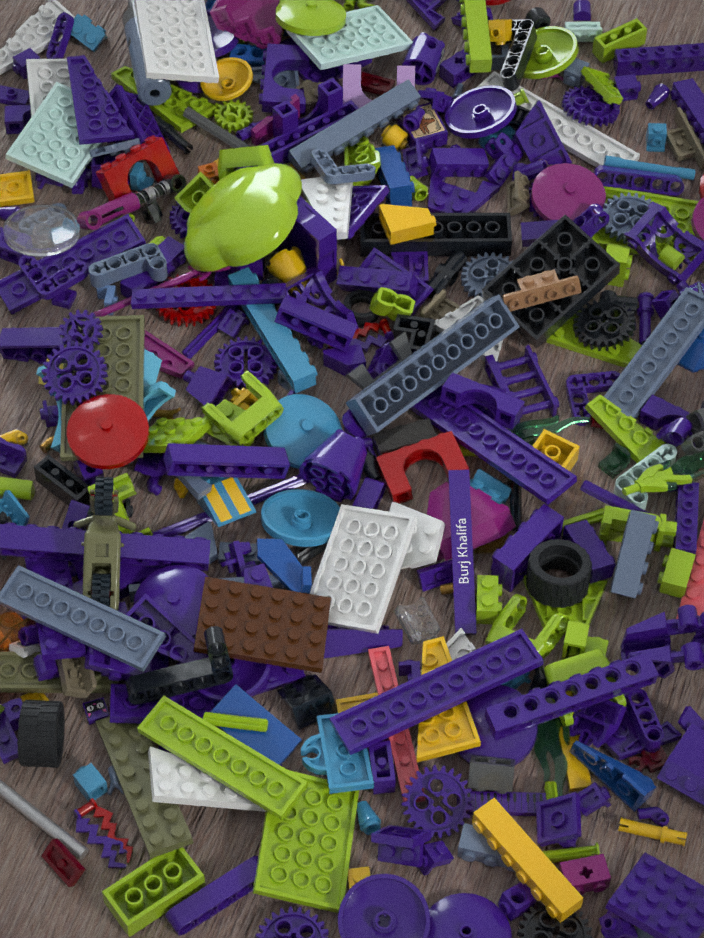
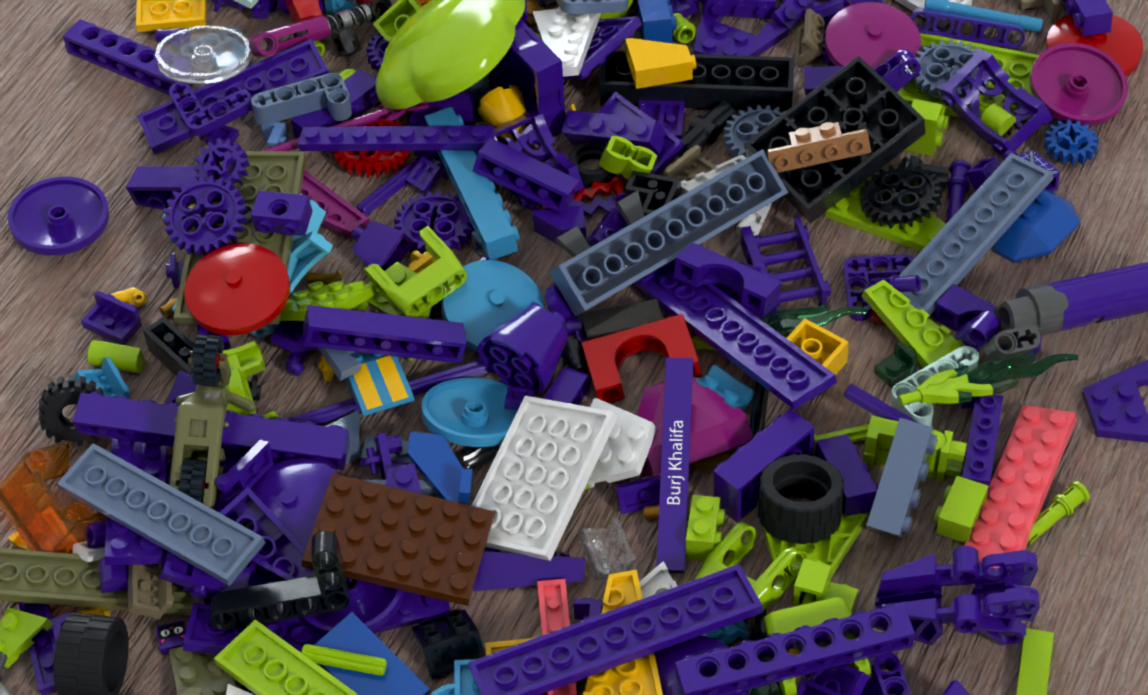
camera: 10 degrees right, 5 degrees down
(127, 361) = (281, 213): none -> dark purple brick
(137, 581) = (245, 472): none -> dark purple plate
(333, 504) = (515, 397): none -> dark purple tile
(612, 396) = (902, 284): none -> dark purple axle

